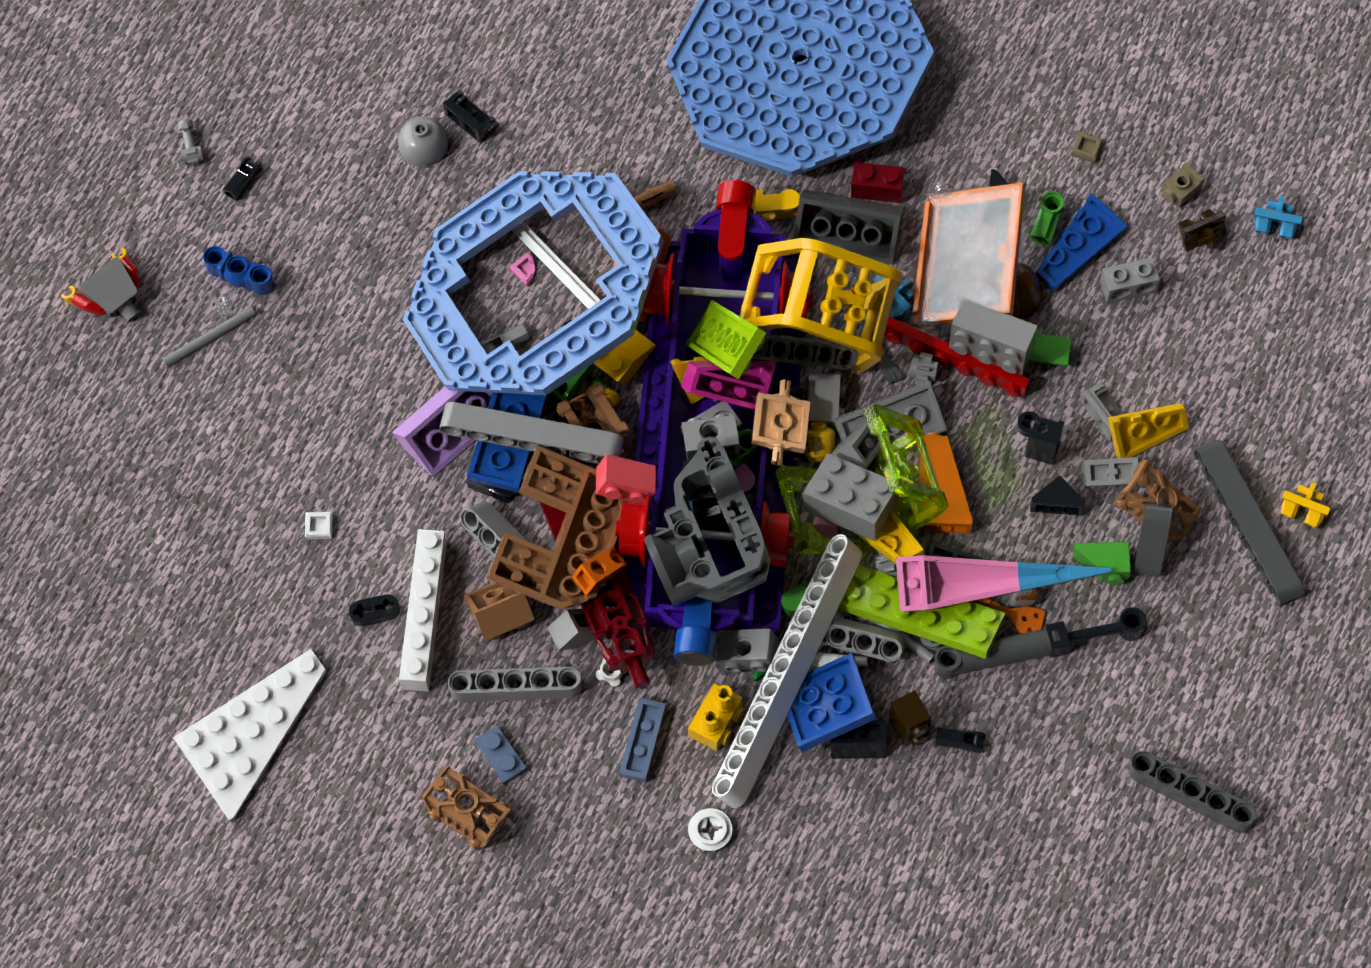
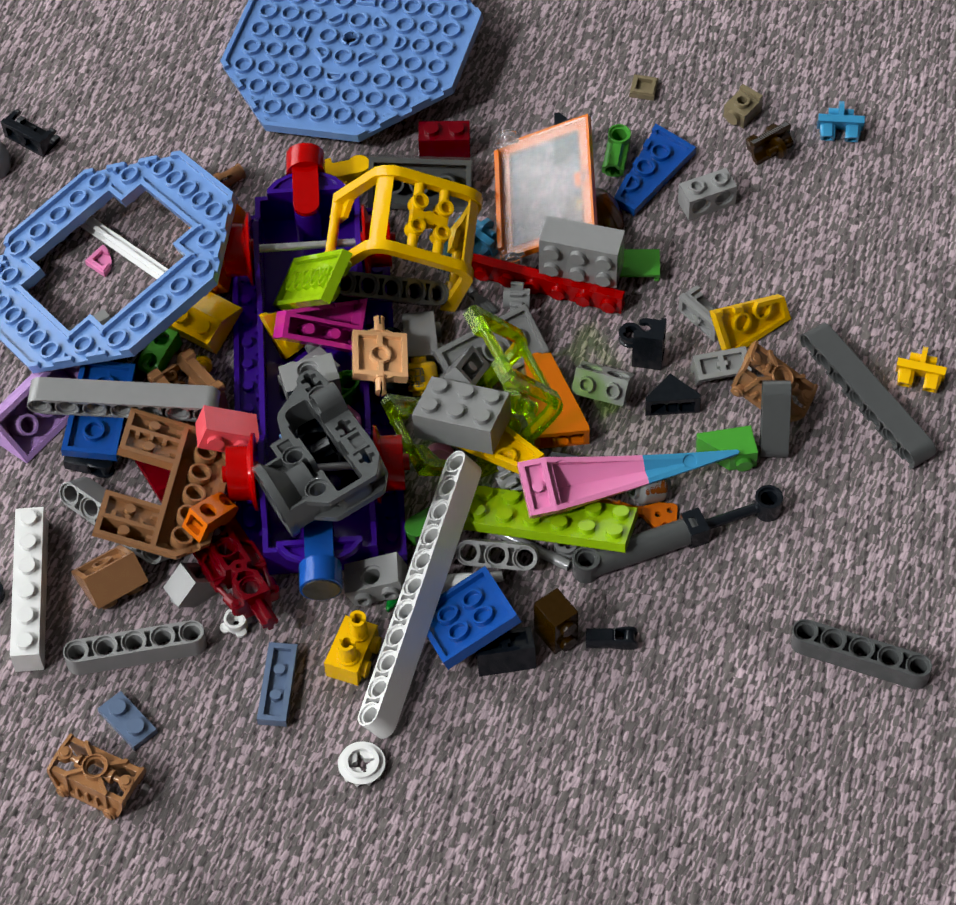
camera: 10 degrees left, 10 degrees down
(993, 475) = (602, 383): none -> light grey brick

